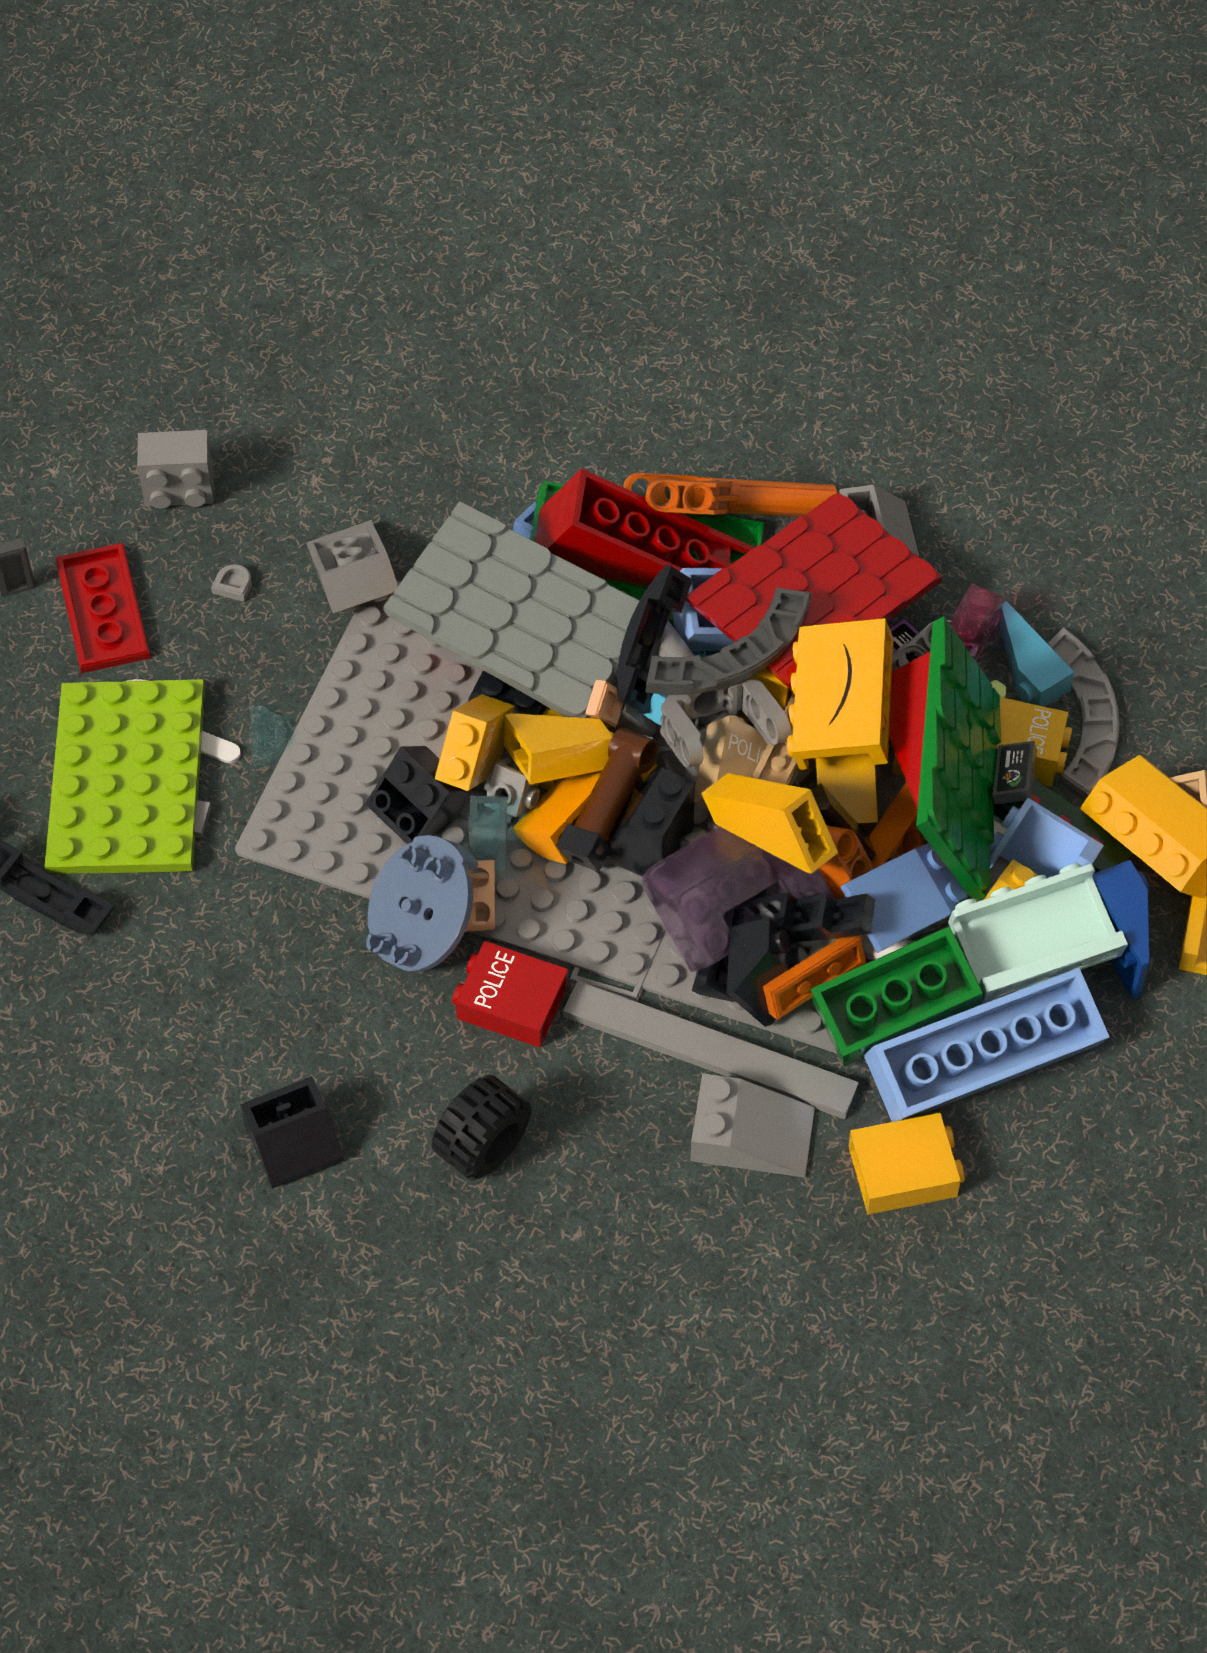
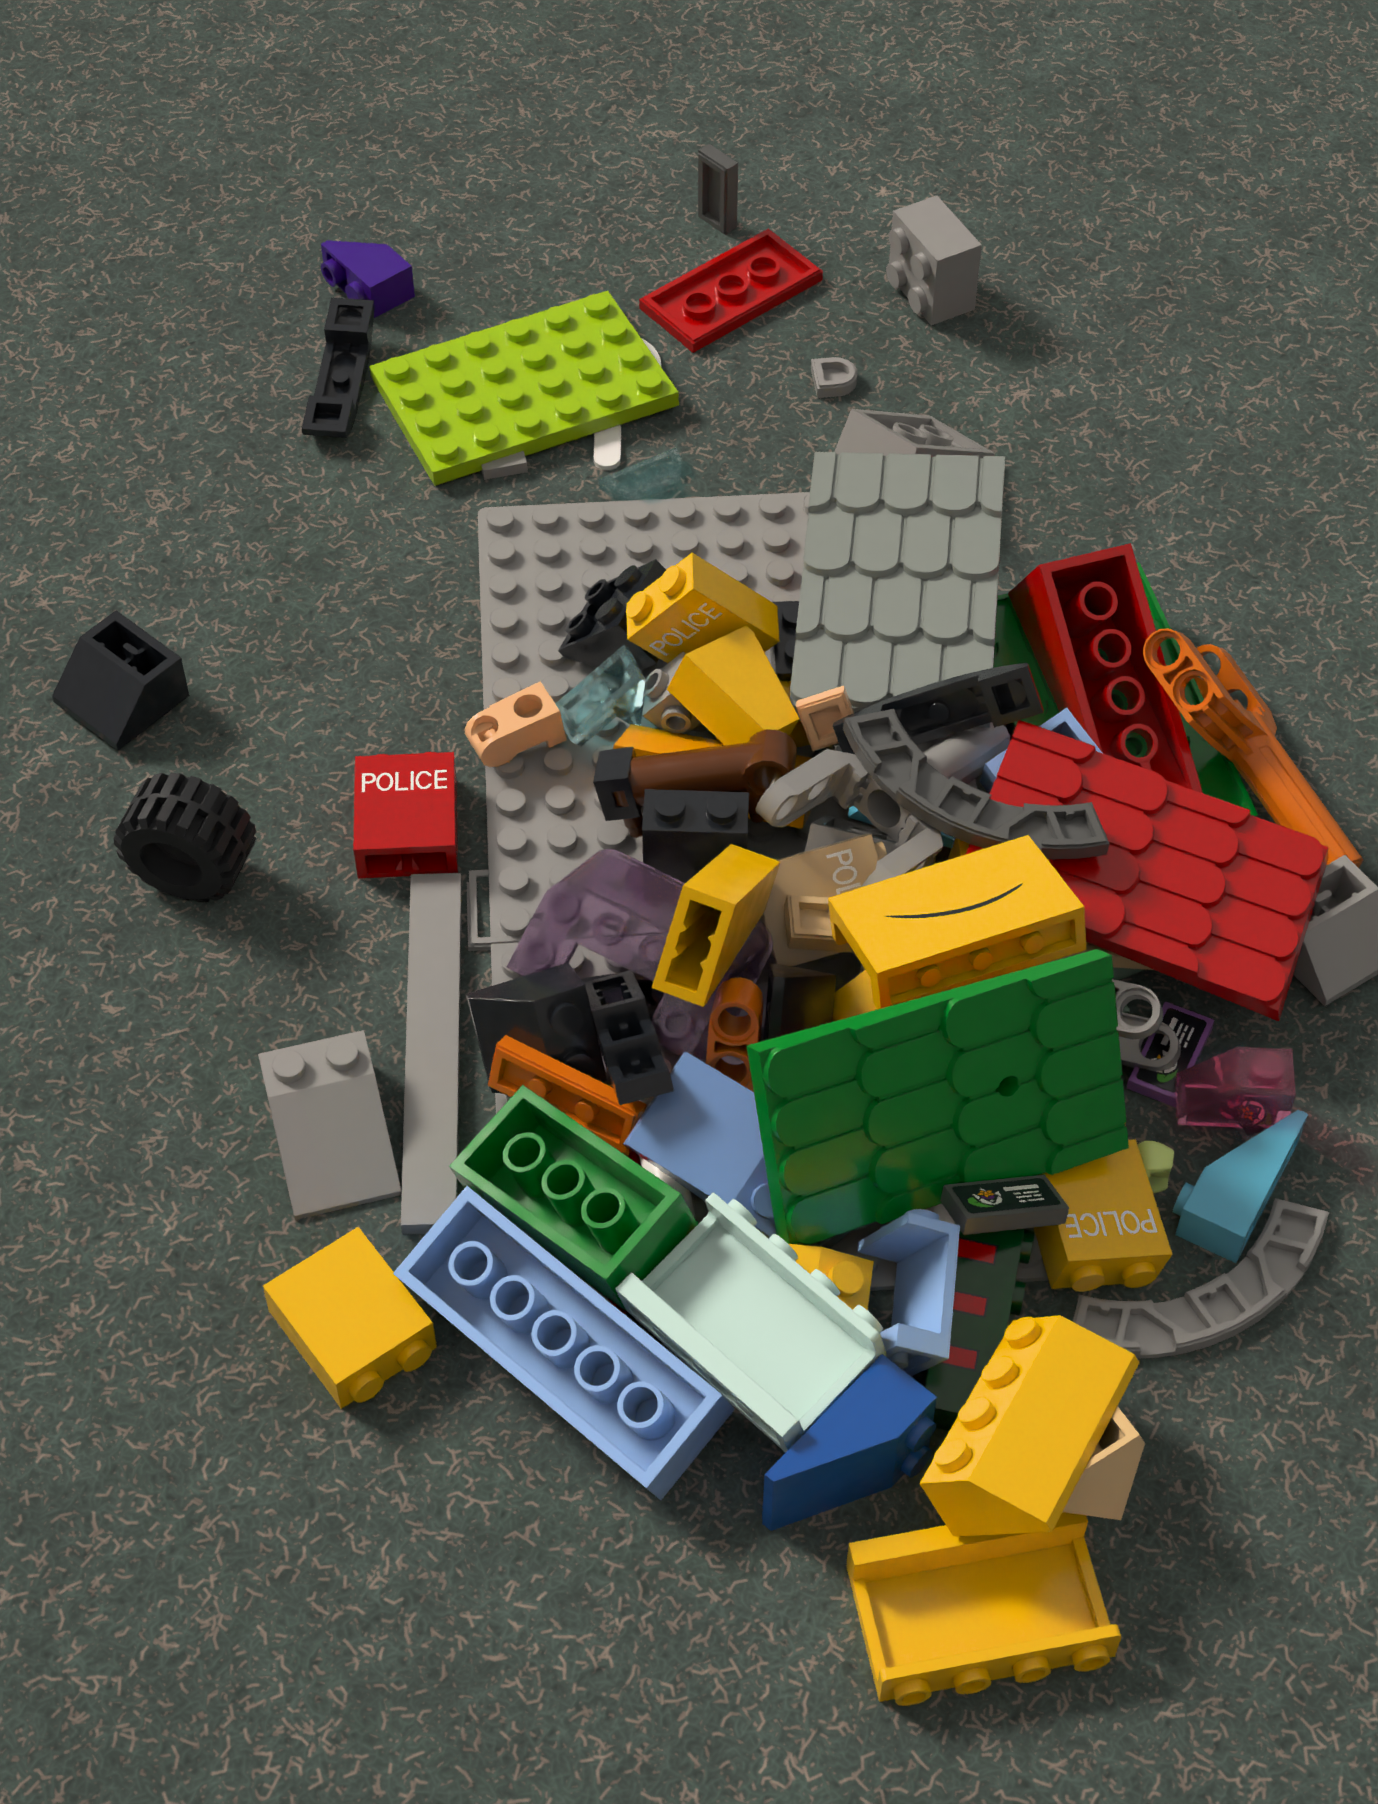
camera: 65 degrees right, 5 degrees down
(434, 878) = (492, 663): sand blue piece -> none

